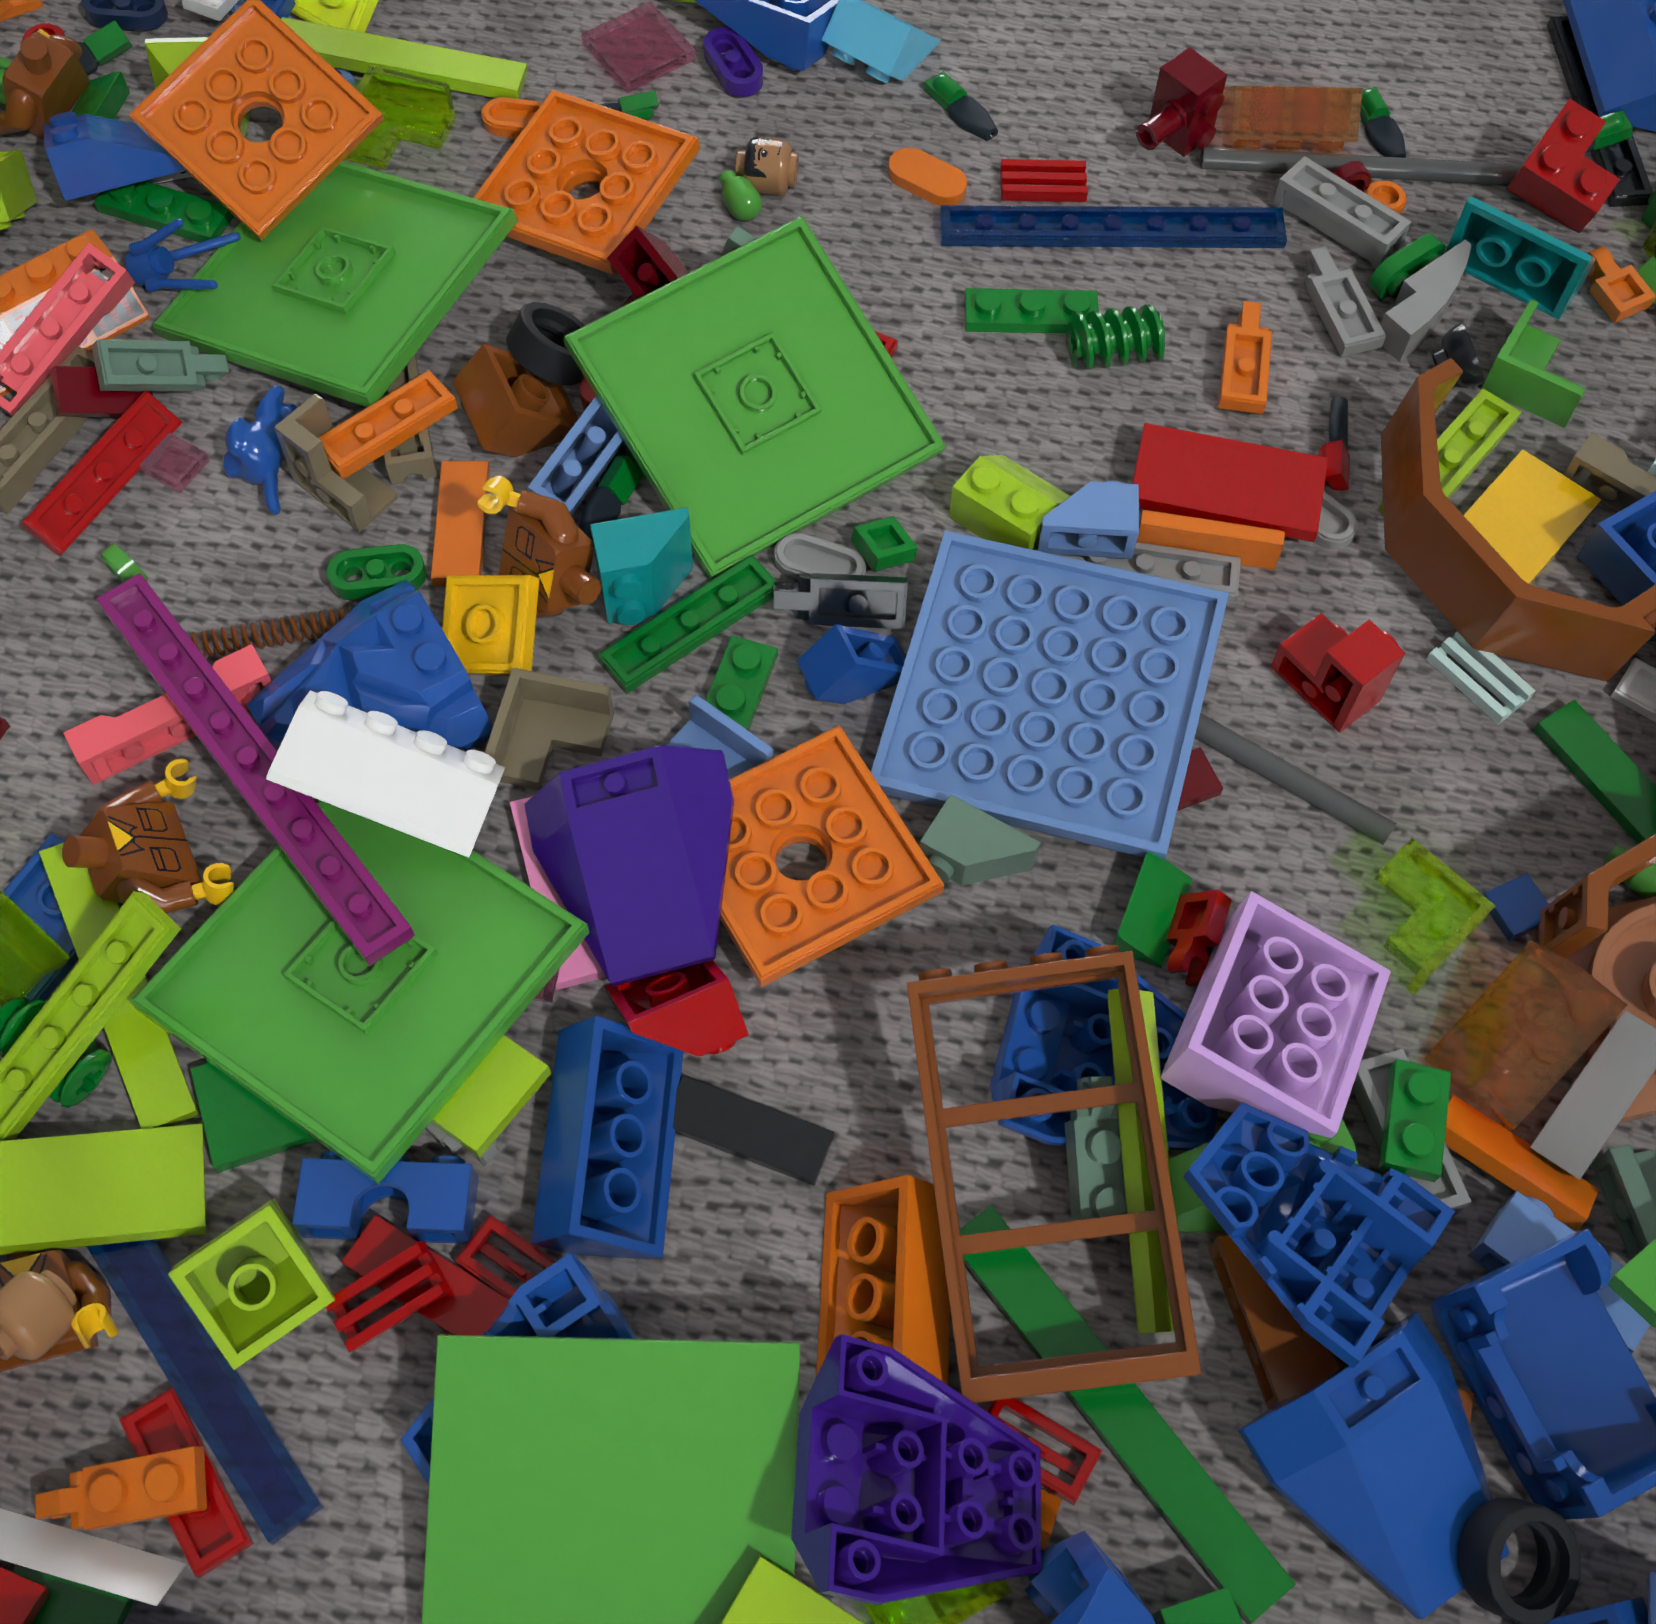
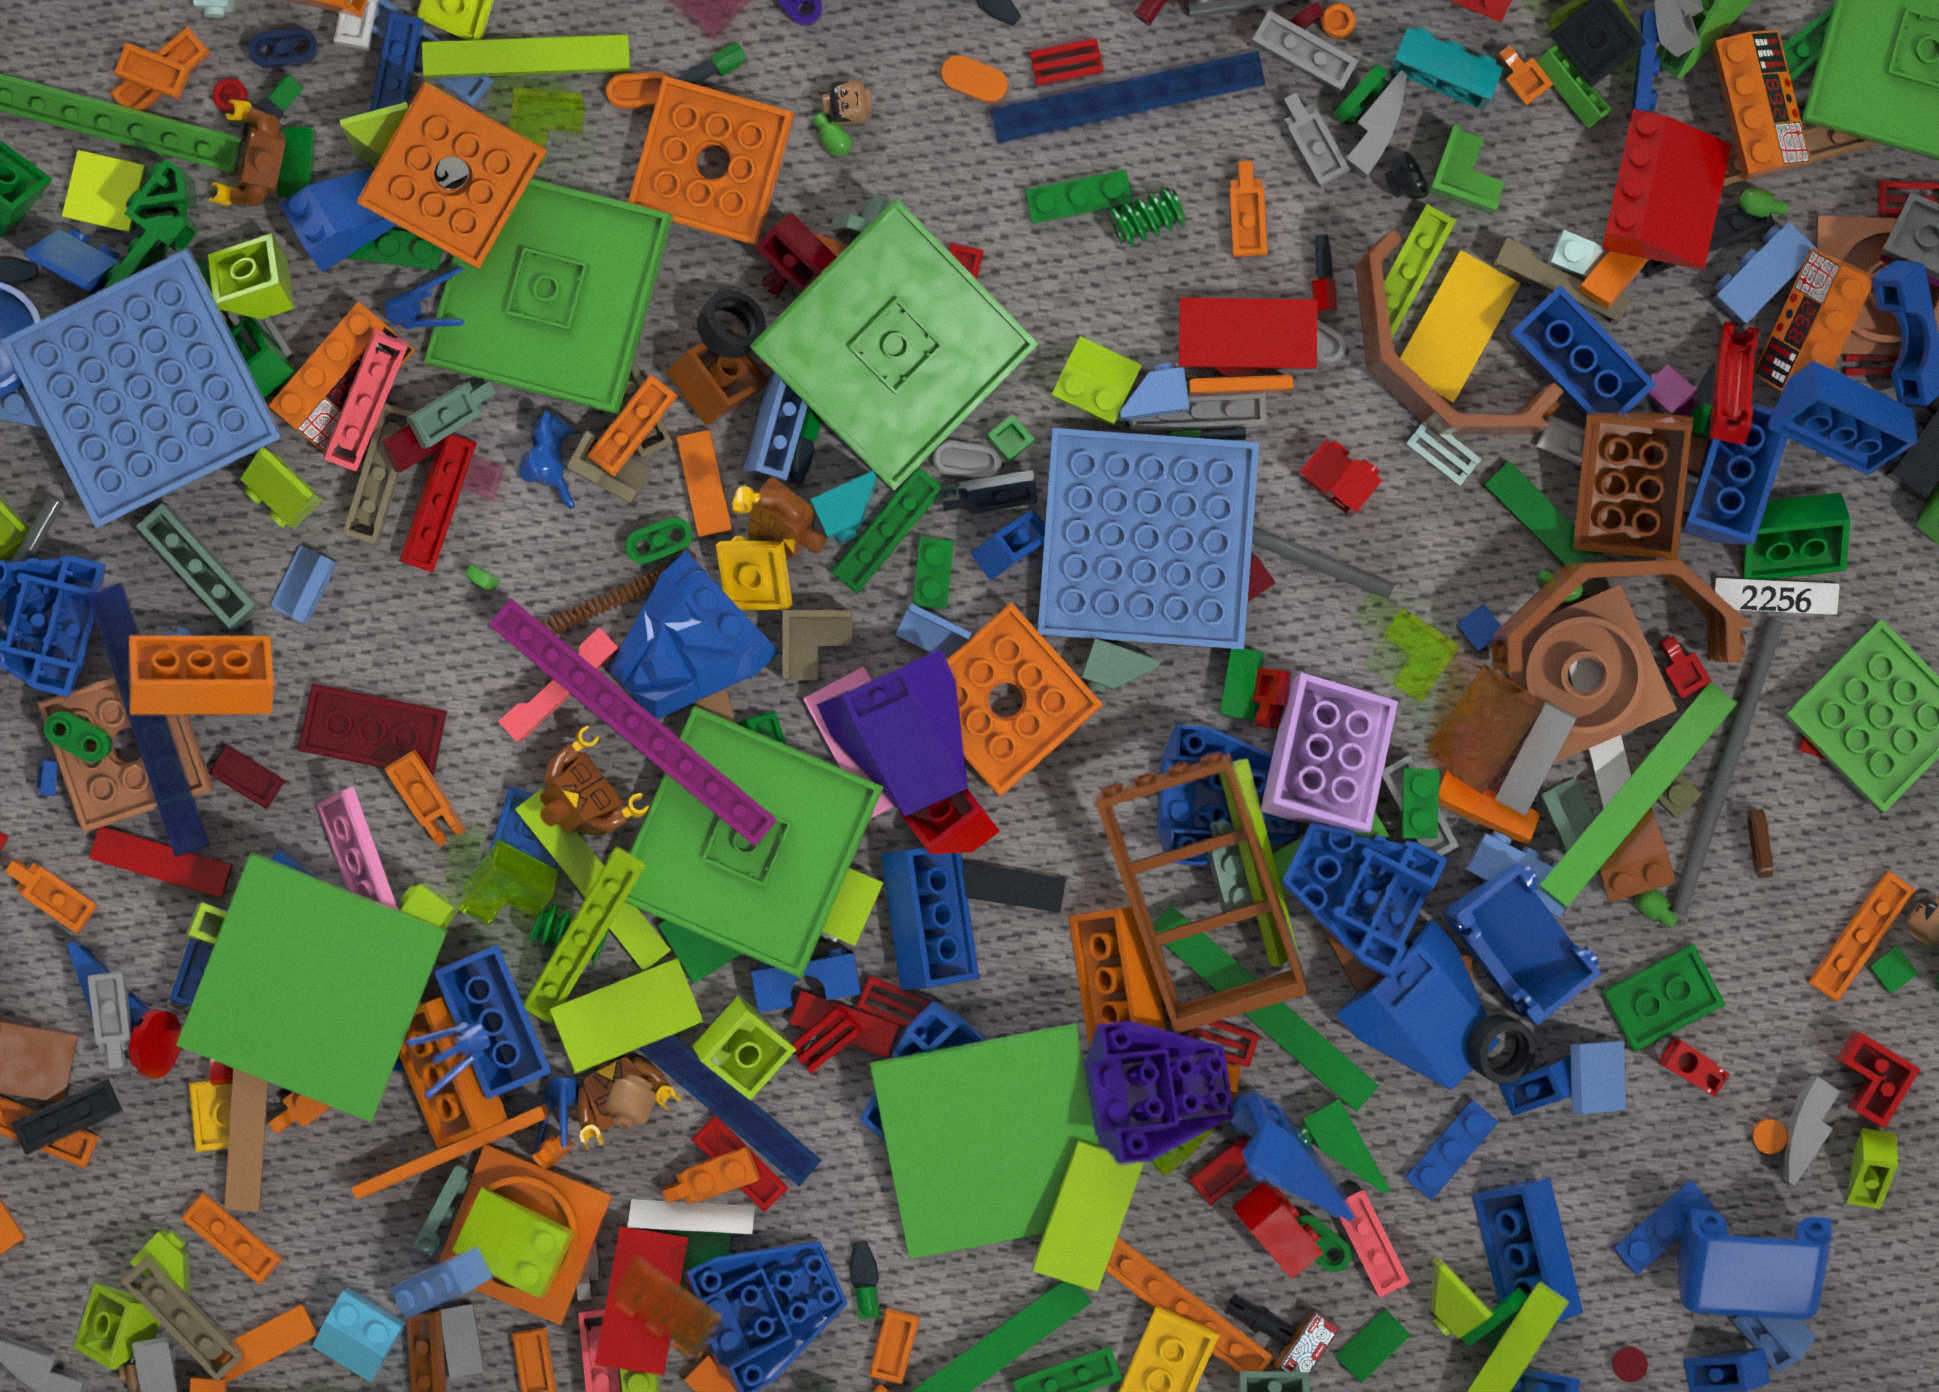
camera: 10 degrees left, 25 degrees up
(386, 772) = (727, 714): white slope -> none

